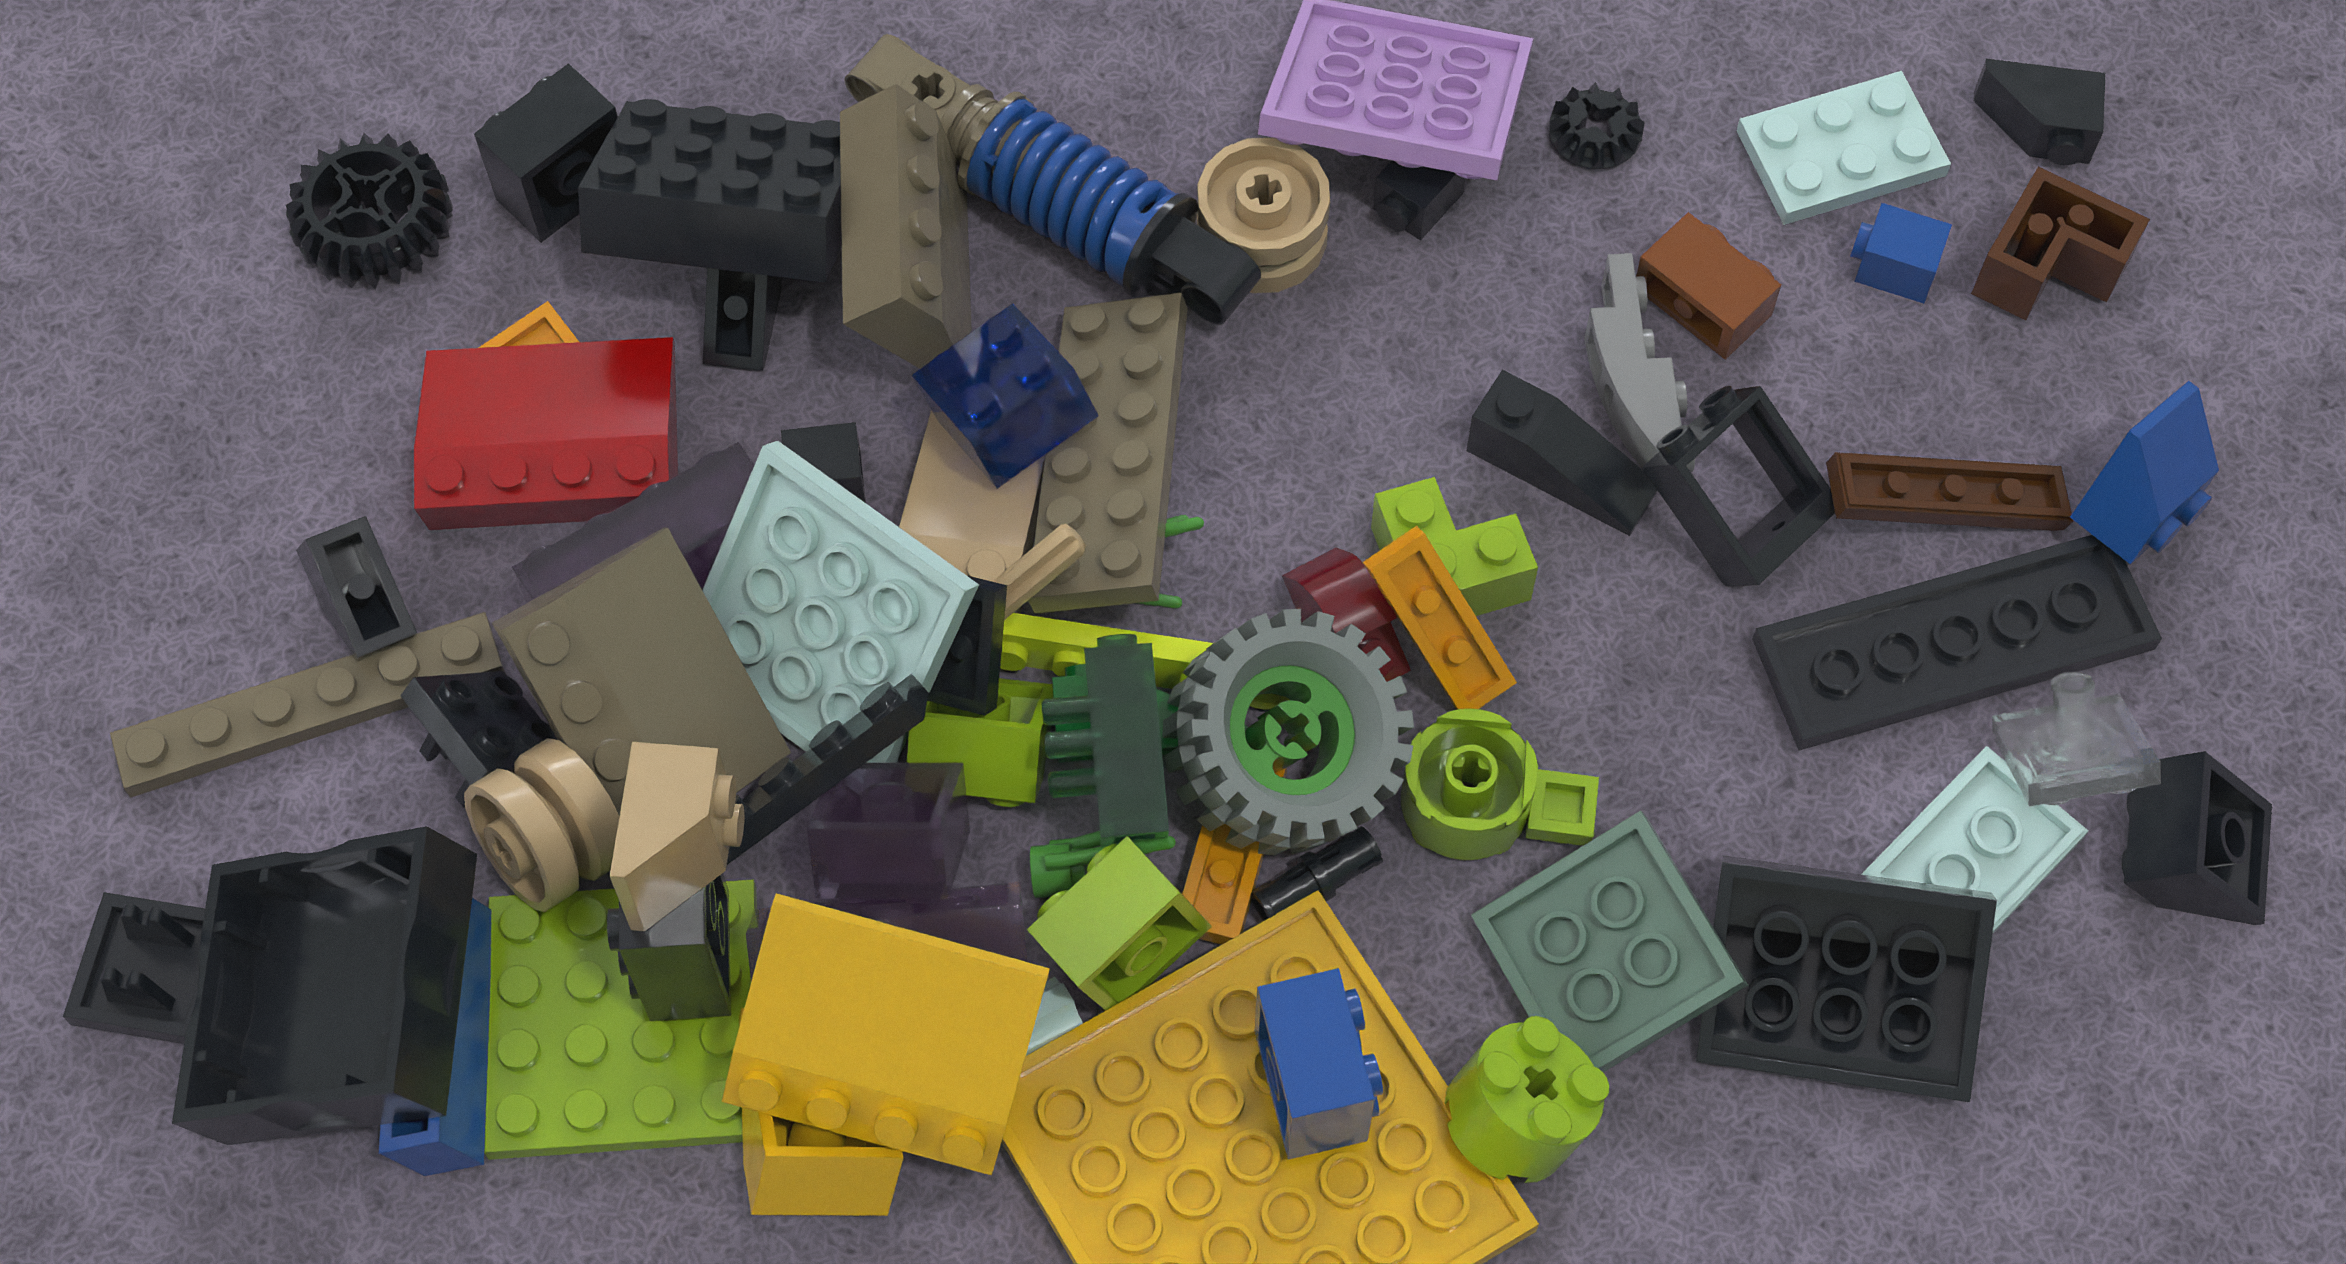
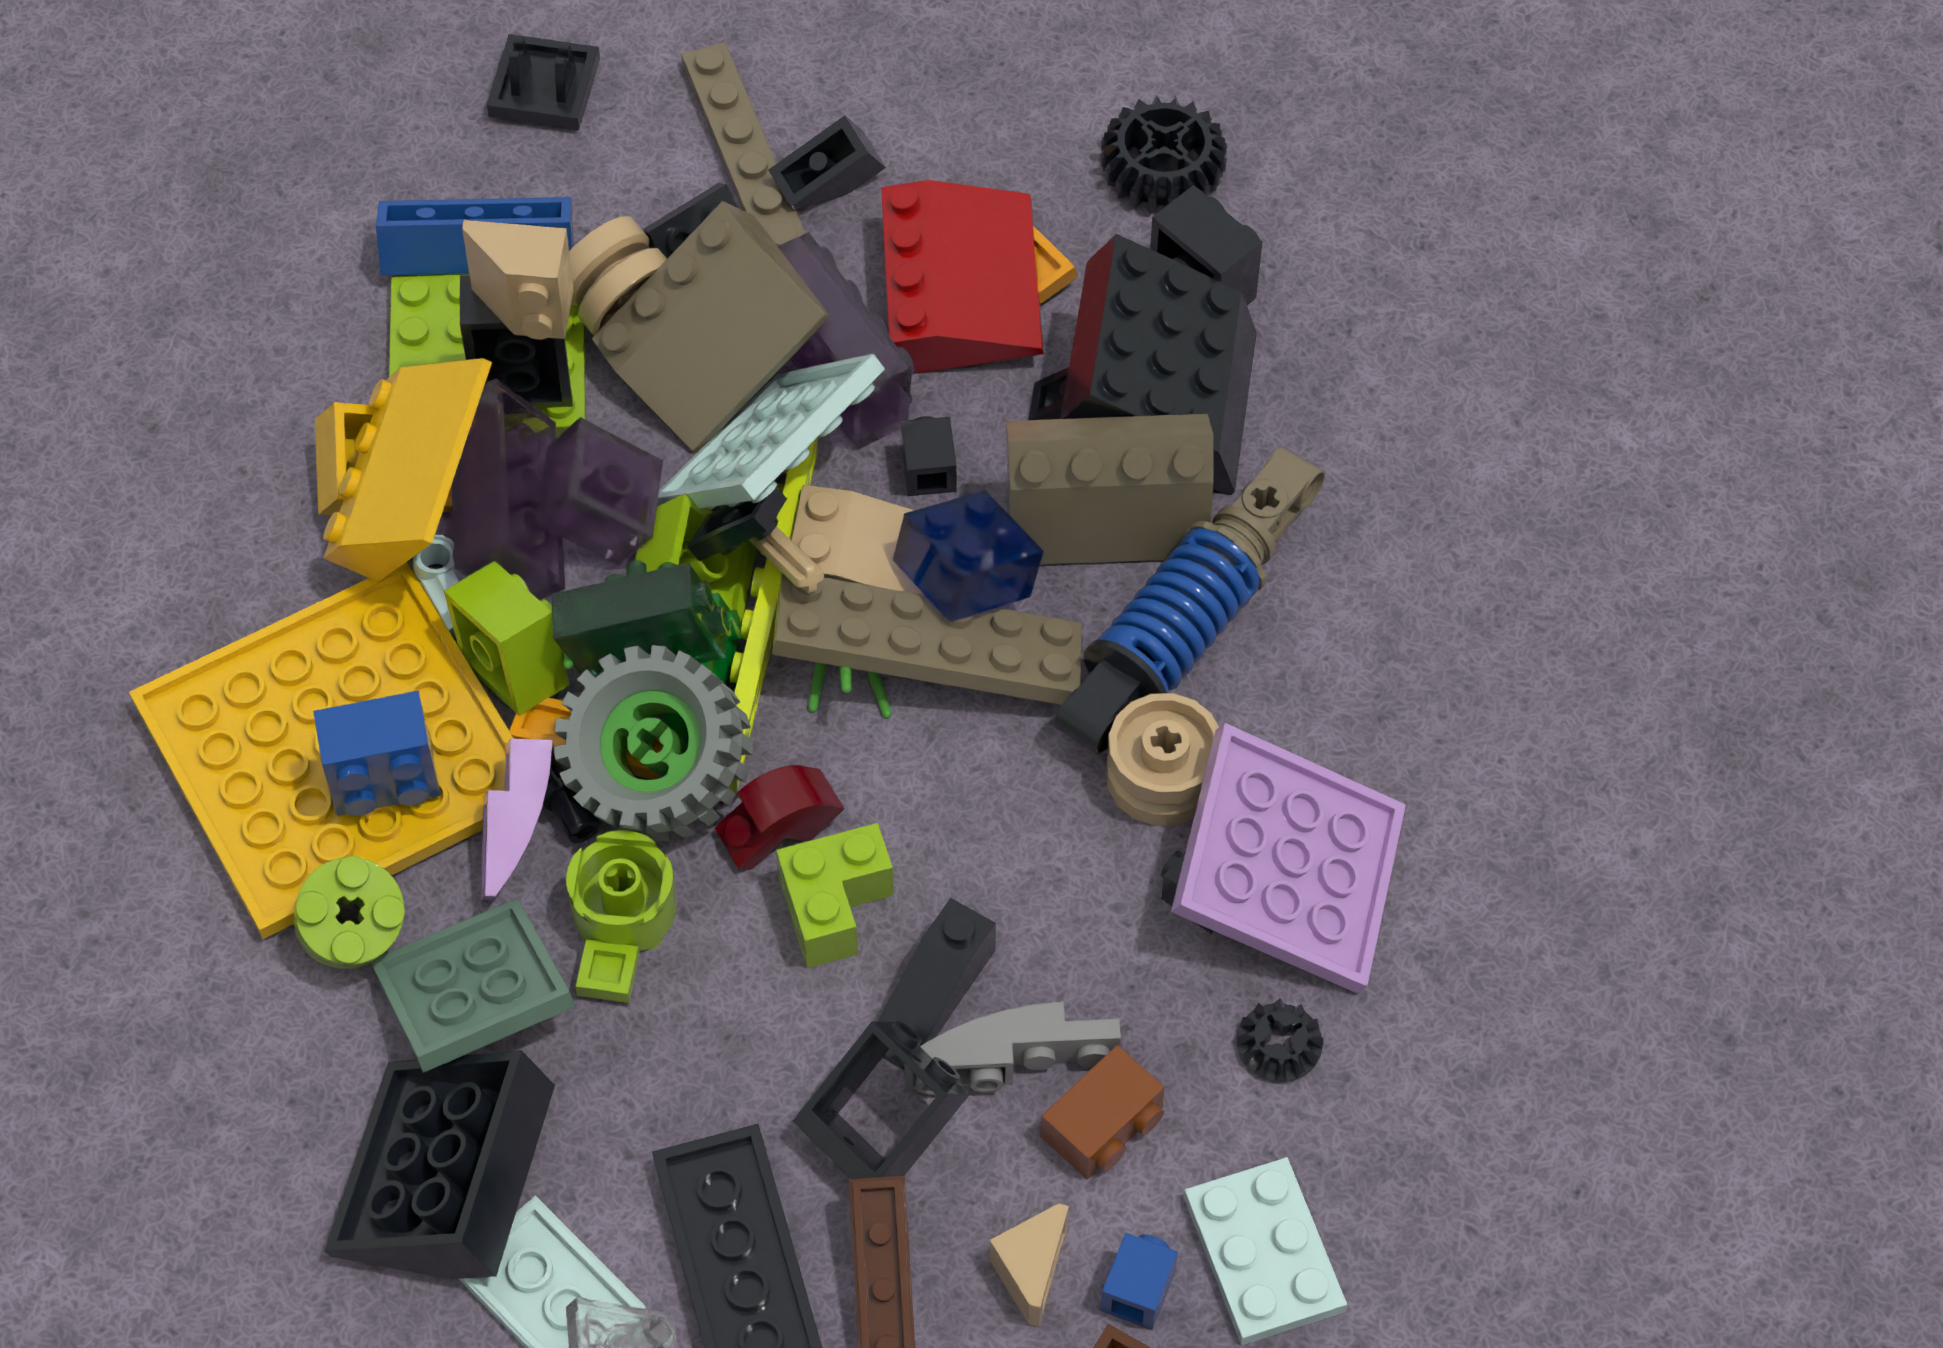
camera: 90 degrees right, 5 degrees down
(327, 989) = (497, 159): black tile -> none
(832, 757) = (646, 439): black plate -> none
(1372, 912) = (513, 813): none -> lavender slope
(1439, 621) = (754, 863): light orange plate -> none
(1890, 352) = (1028, 1259): none -> tan slope

